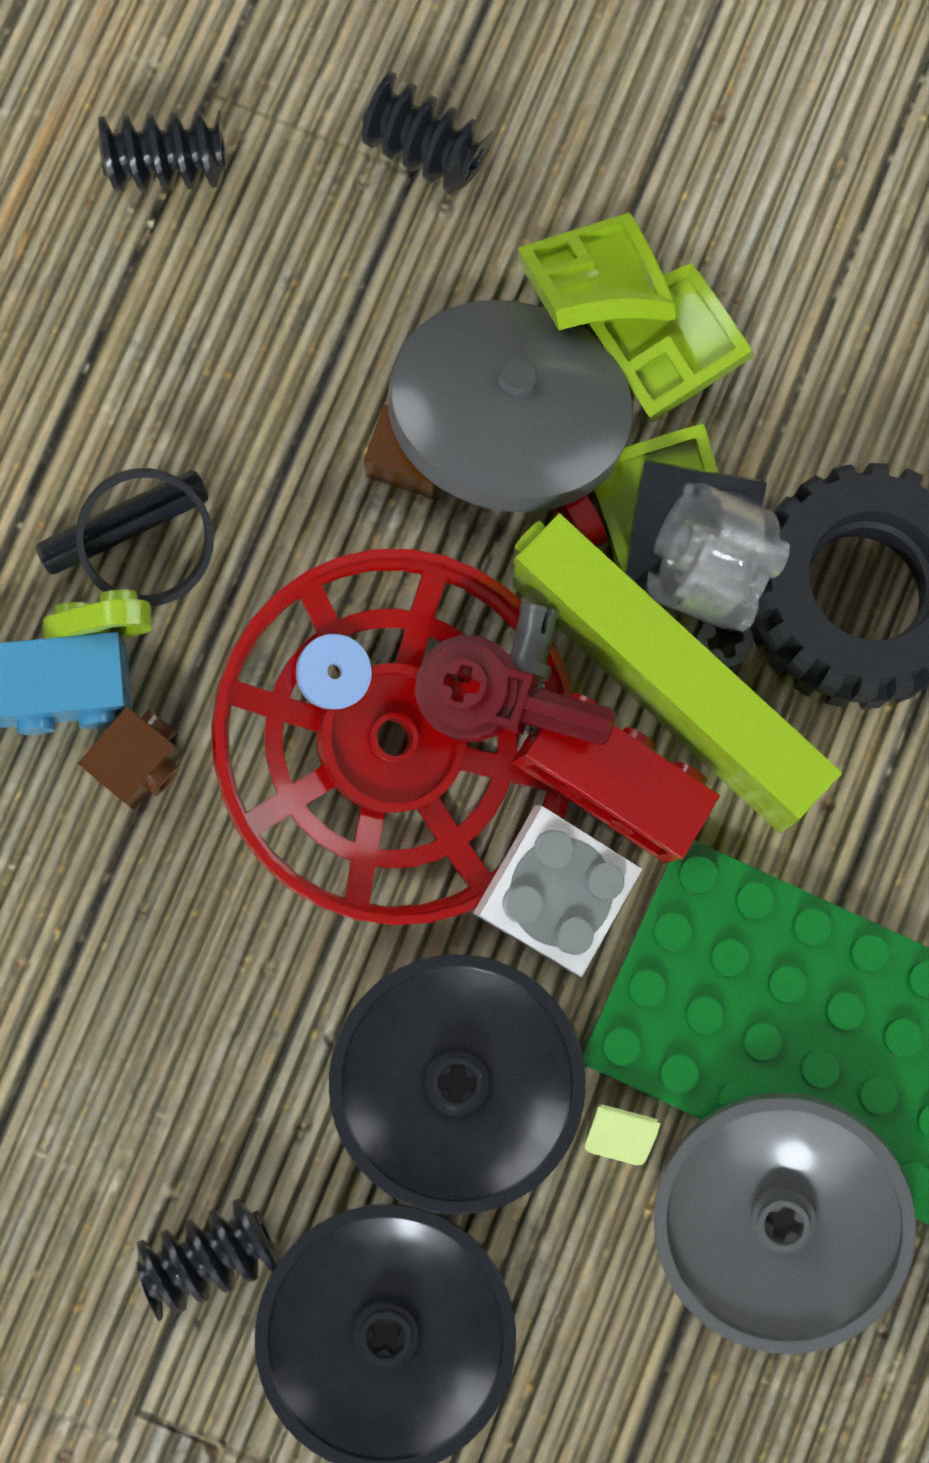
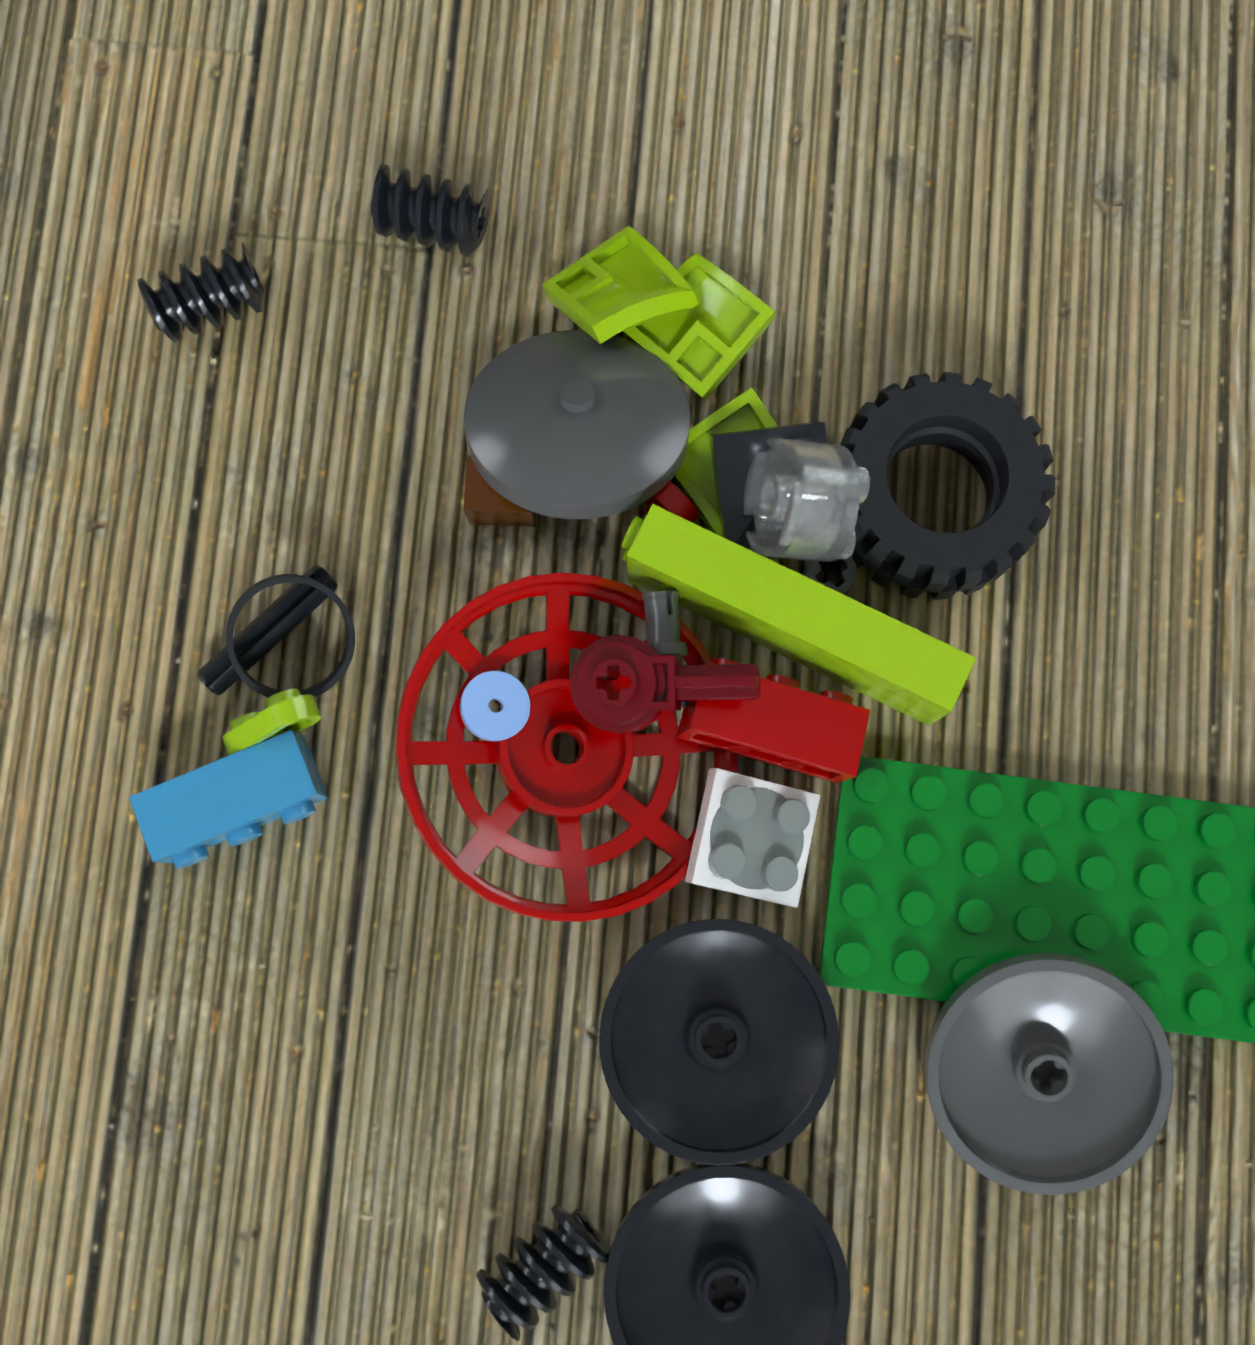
camera: 10 degrees left, 0 degrees up
(134, 757) = (340, 836): reddish brown brick -> none
(620, 1134) = (876, 1036): yellowish green slope -> none

